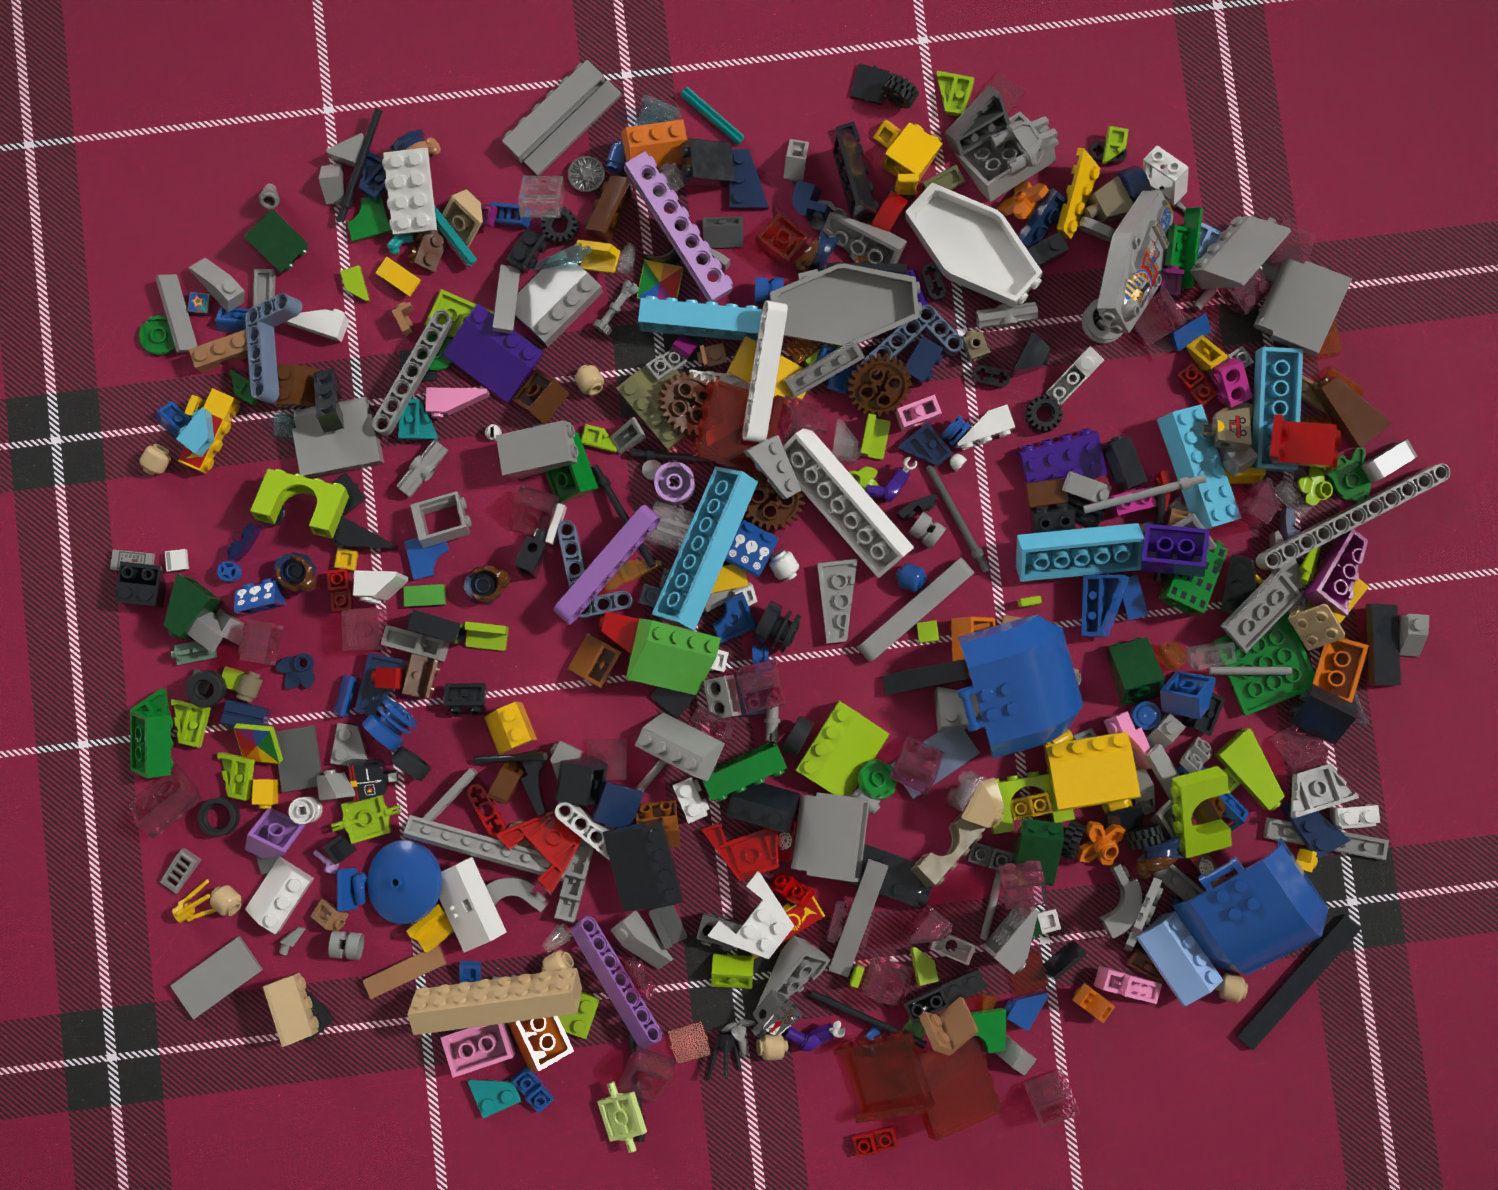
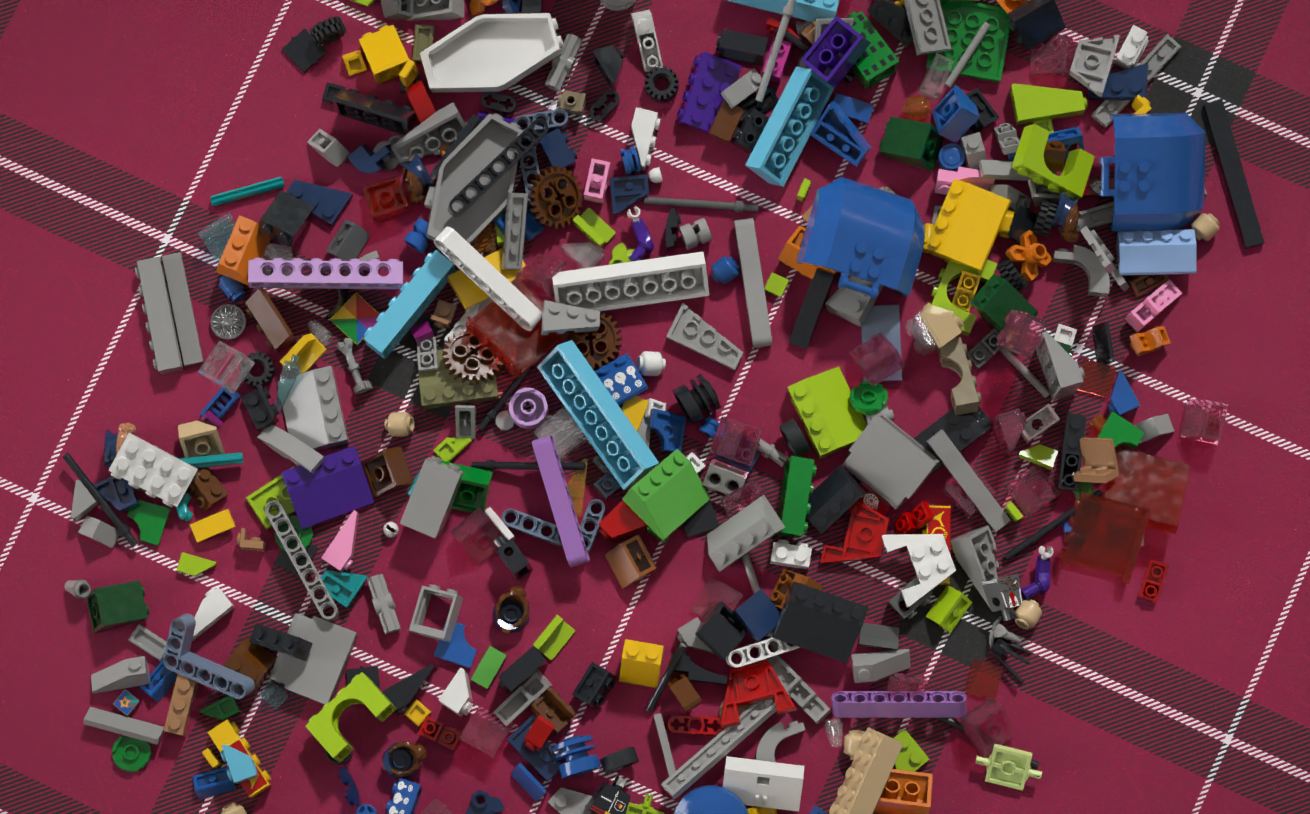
camera: 50 degrees left, 5 degrees down
(880, 314) = (501, 159): none -> black beam

